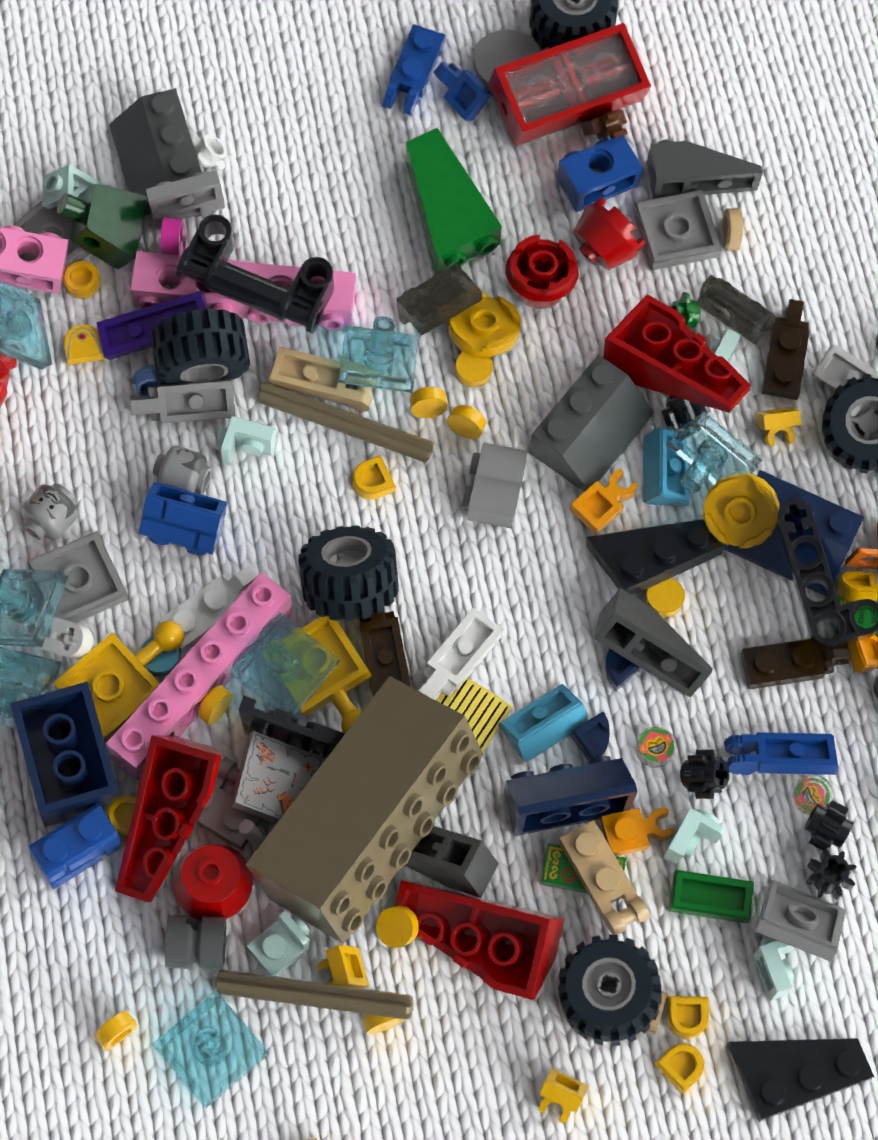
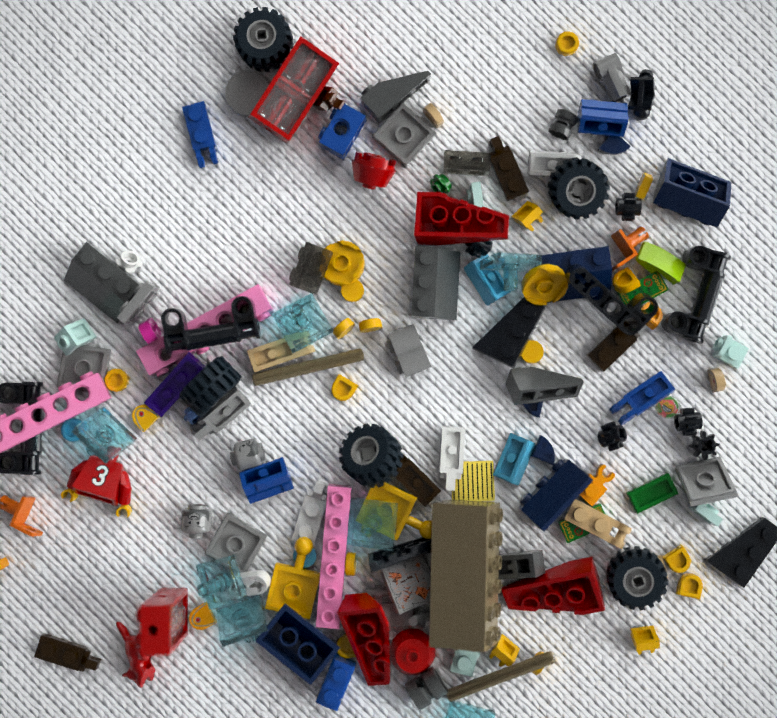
camera: 25 degrees left, 20 degrees up
(105, 222) = (107, 344): dark green torso -> none
(249, 436) = (269, 411): light aqua bracket -> none
(397, 926) = (514, 613): yellow tile -> none
(449, 204) = (276, 205): green slope -> none
(465, 90) = (239, 130): blue plate -> none
(541, 271) = (353, 215): red cone -> none
(601, 504) = (467, 325): light orange plate -> none
(655, 747) = (577, 435): tile -> none
(686, 840) = (623, 476): light aqua bracket -> none

